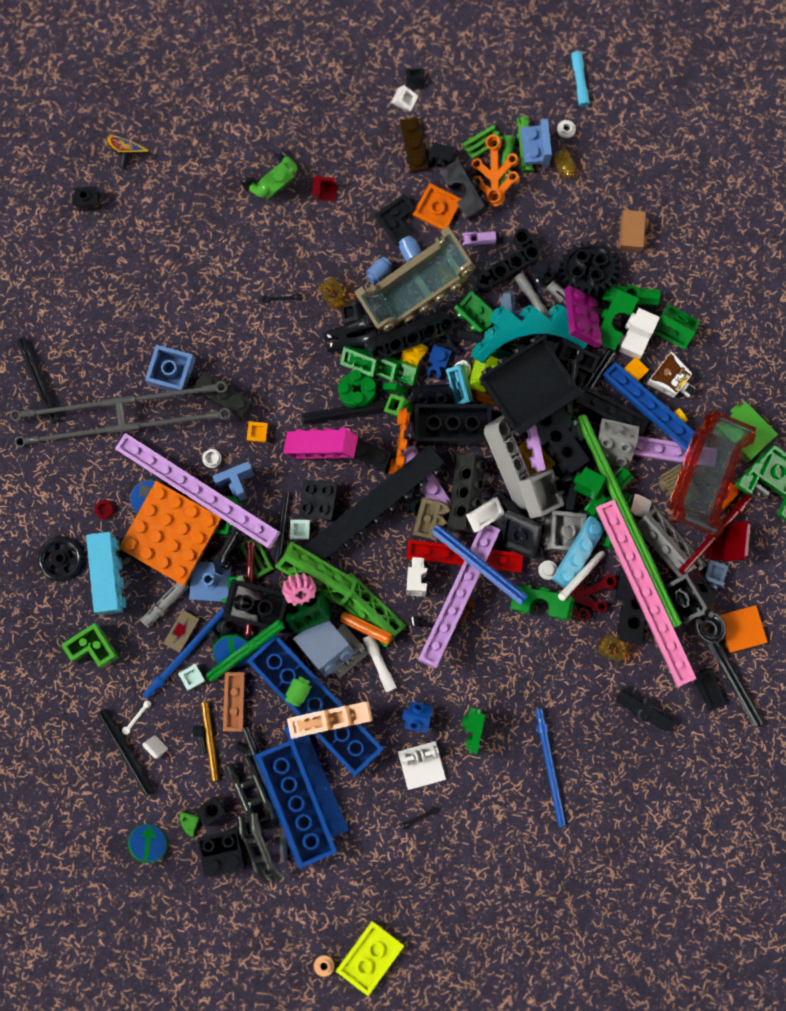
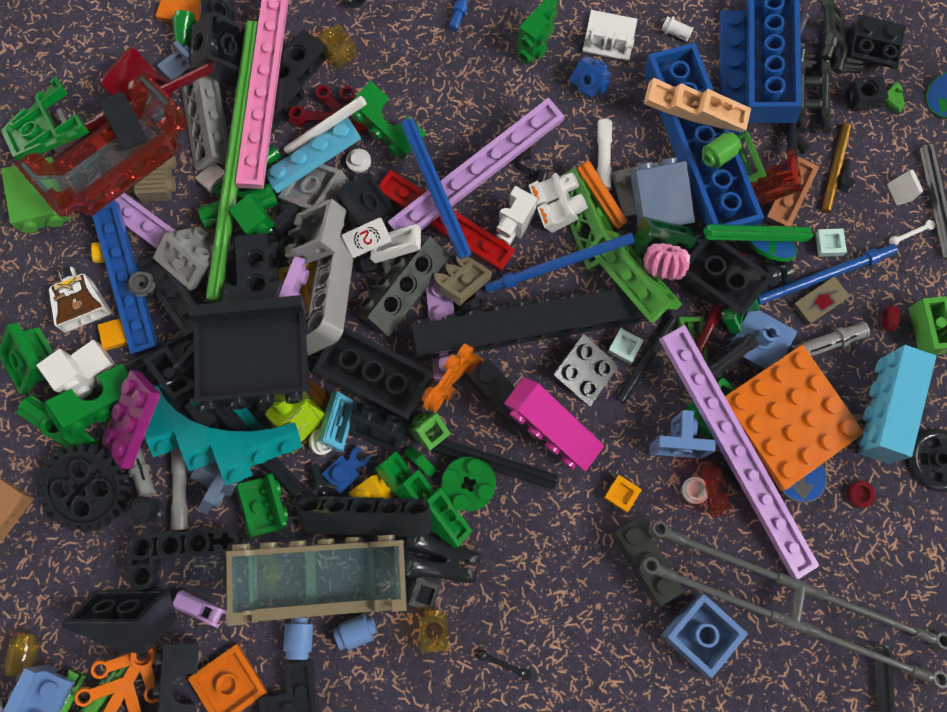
camera: 155 degrees left, 5 degrees down
(129, 640) = (890, 318): none -> dark red tile
(199, 460) = (713, 477): none -> clear red wing
(248, 700) = (779, 180): none -> clear red wing
(276, 711) = (761, 172): none -> bright green tile
(374, 795) = (677, 29): none -> white pin
(397, 536) = (512, 279): none -> blue bar
(397, 614) = (555, 203): none -> white hips
(506, 507) = (366, 237): none -> white sticker
(517, 209) = (124, 618): none -> black slope
(634, 399) = (141, 291): none -> dark grey plate
(714, 501) = (123, 121): none -> black tile
(727, 602) = (182, 26): none -> green cone

